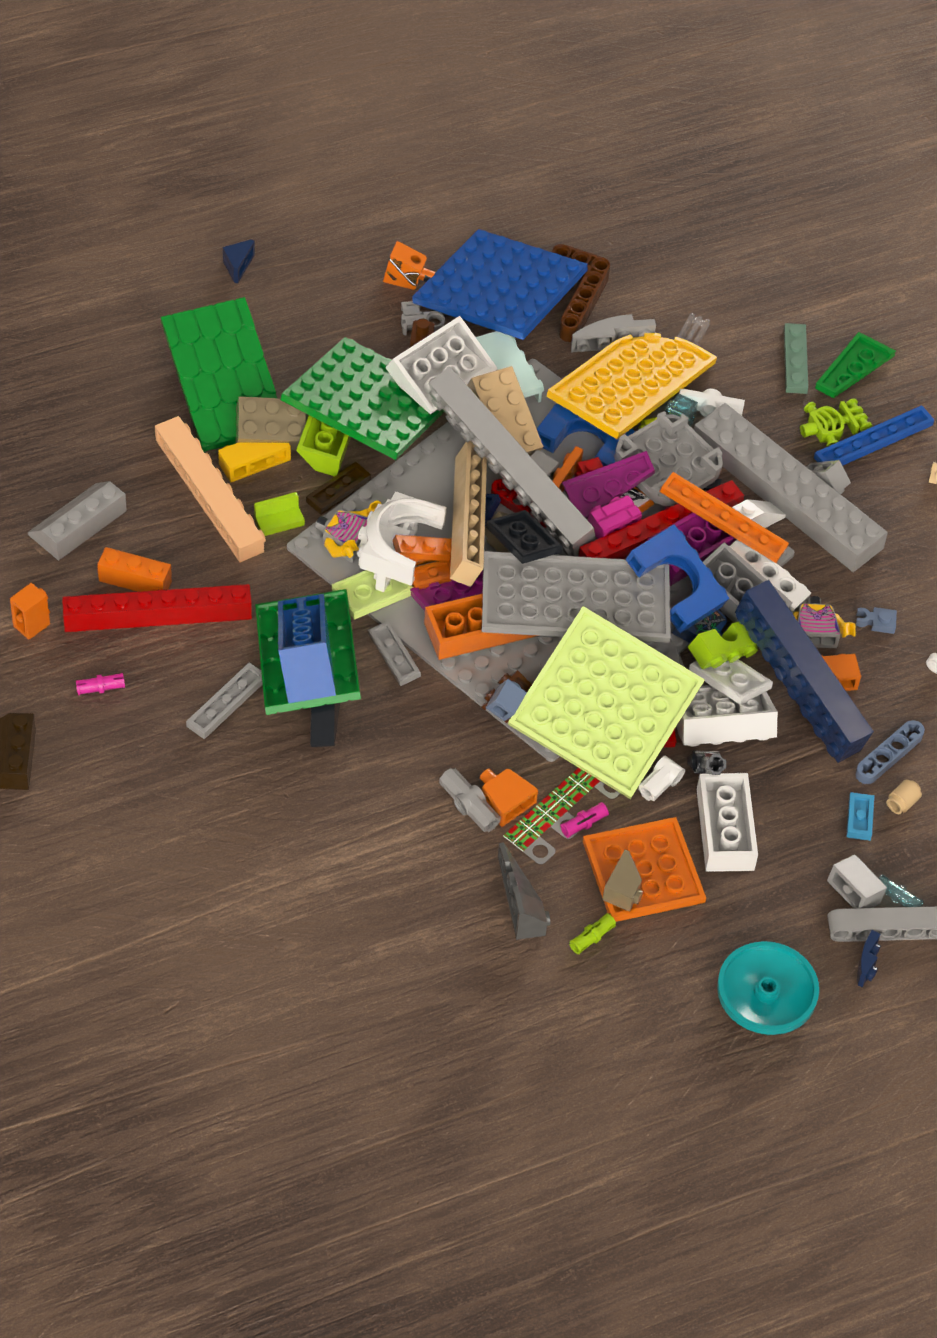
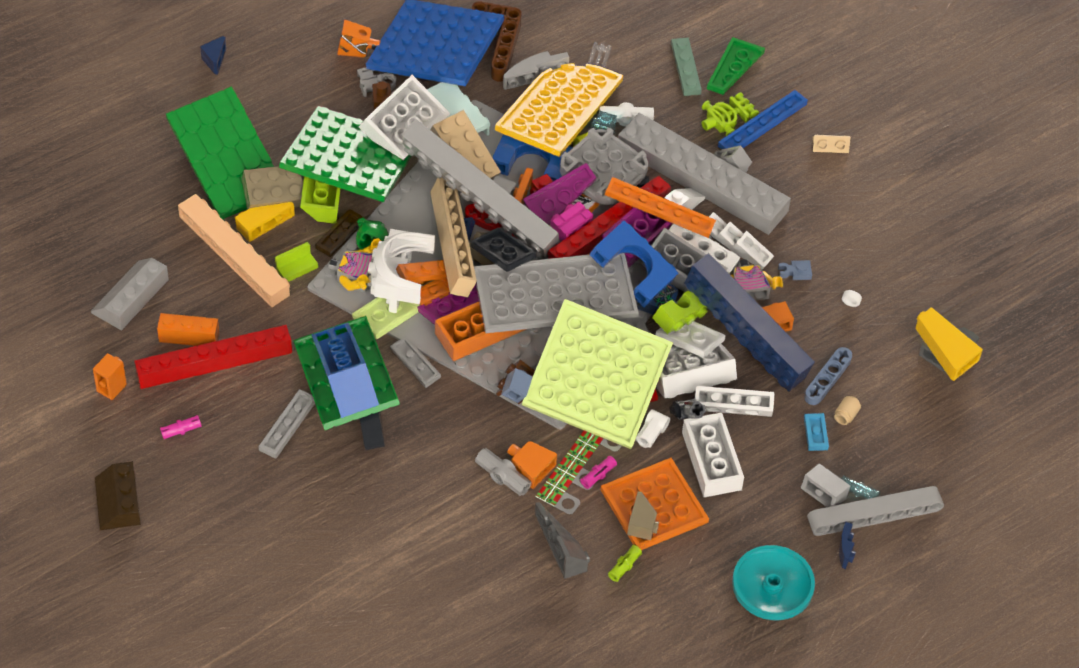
camera: 10 degrees left, 0 degrees up
(372, 490) = (369, 231): none -> green piece
(768, 762) = (735, 401): none -> white brick
(816, 577) = (741, 244): none -> white slope

